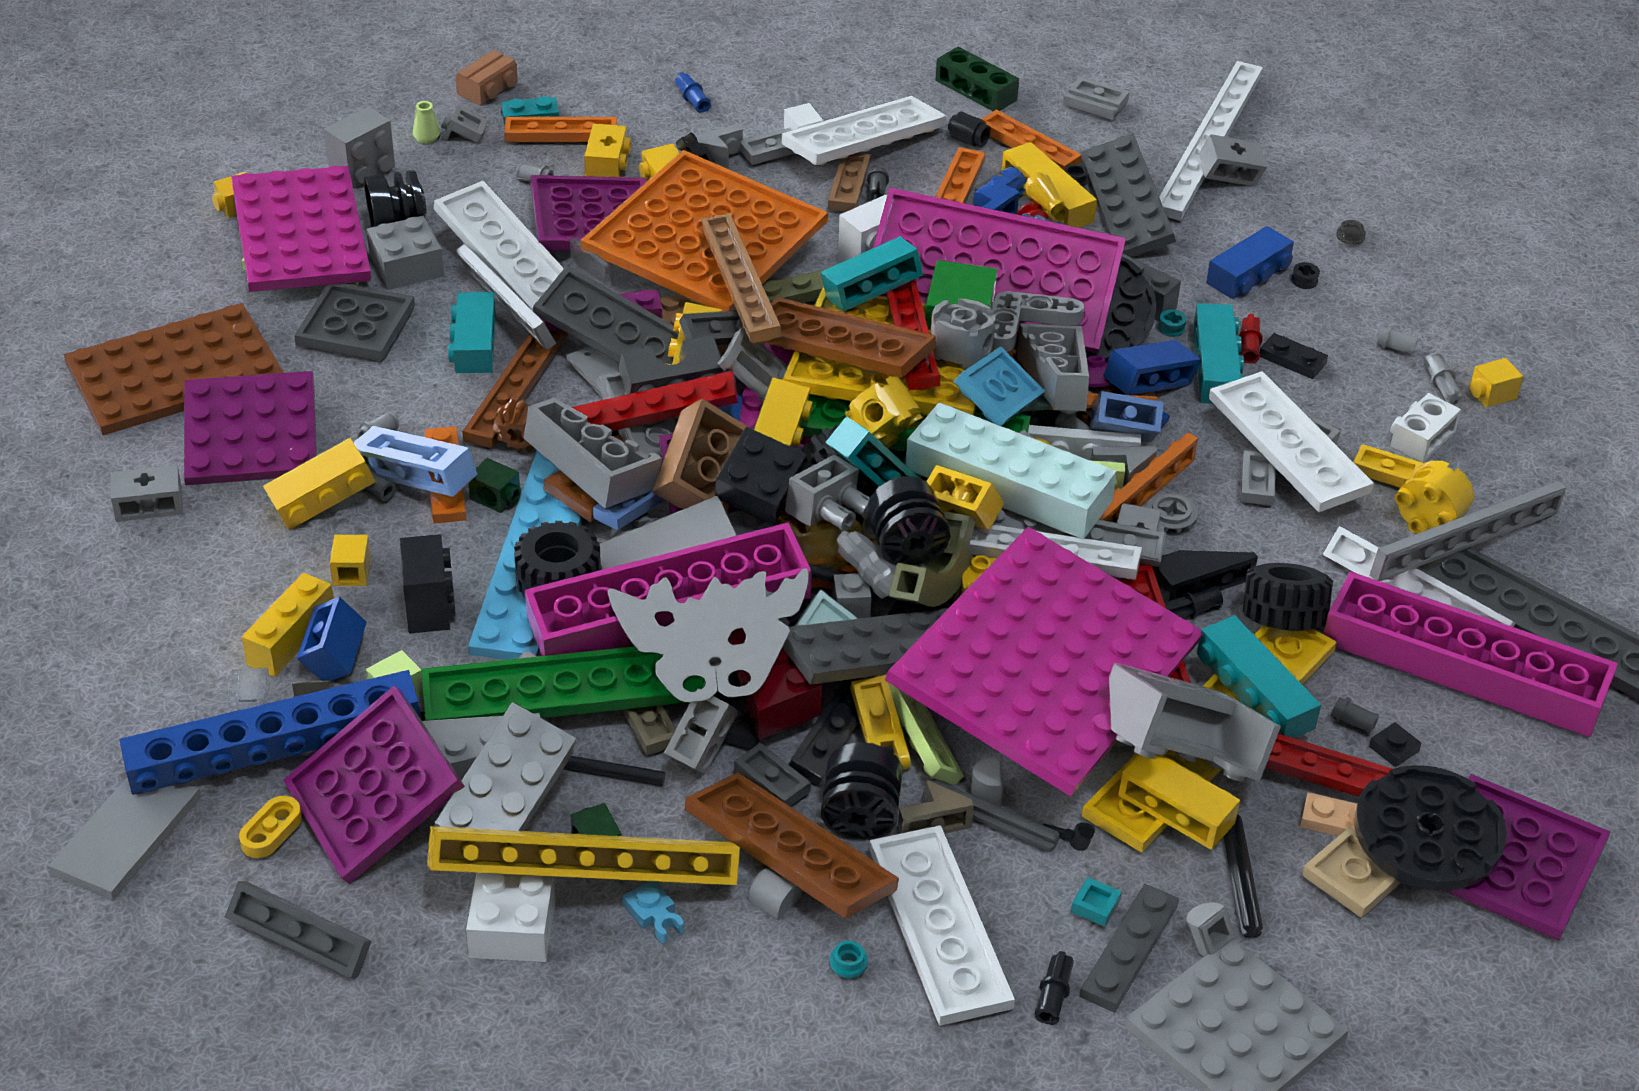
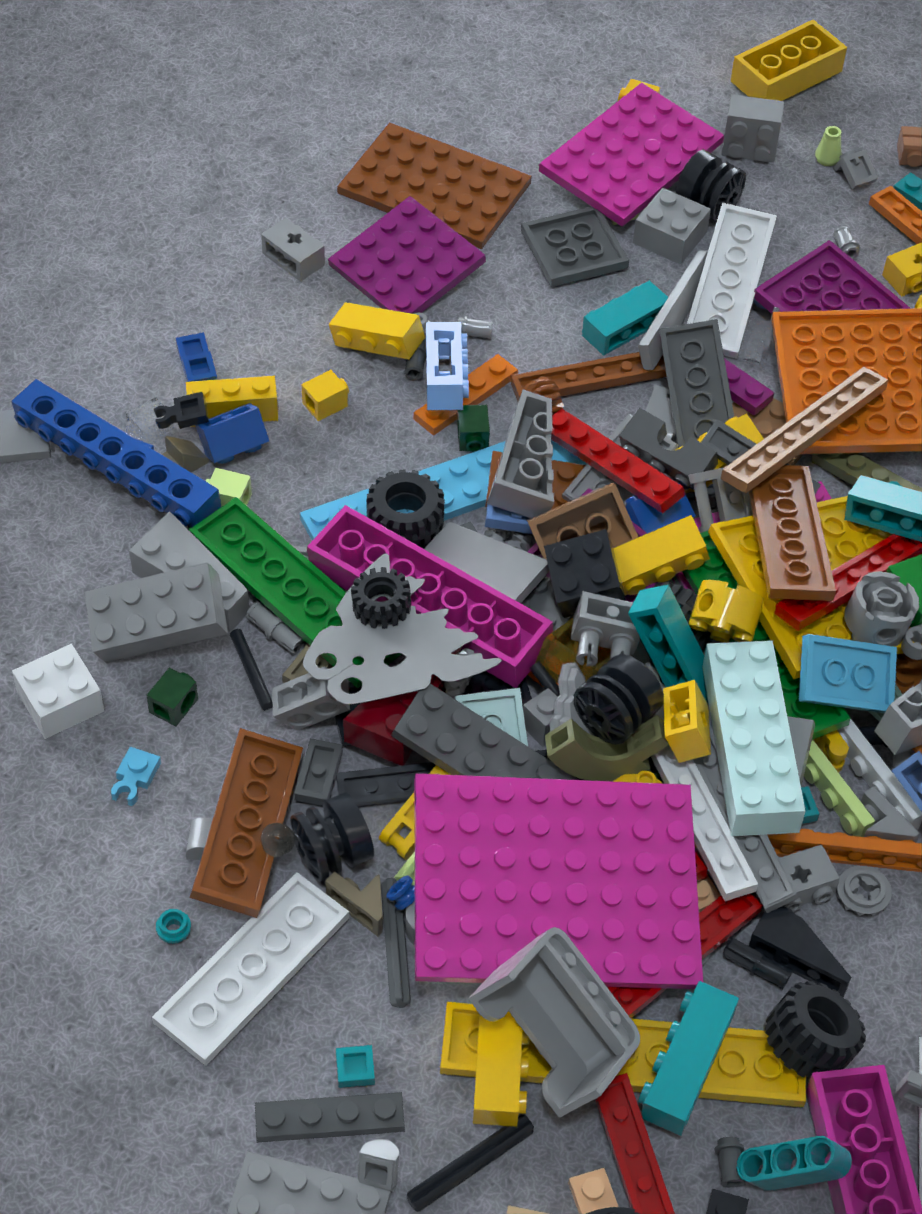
camera: 55 degrees right, 10 degrees up
(207, 632) = (196, 358): none -> blue slope
(268, 829) = (44, 509): yellow plate -> none
(281, 649) = (187, 412): none -> black plate
(308, 92) = (789, 63): none -> yellow brick
(373, 784) = (107, 537): magenta plate -> none
(427, 583) = (325, 448): black brick -> none
(582, 856) = (123, 698): yellow brick -> none
(592, 726) = (275, 628): none -> light grey pin
(666, 594) = (383, 611): none -> black tyre
(835, 828) = (273, 845): none -> clear smoke plate
(967, 774) = (402, 893): none -> blue bush
(1054, 988) = (244, 1083): black axle -> none
(1079, 837) = (419, 1009): black hand -> none
(1401, 651) = (808, 1169): none -> teal beam

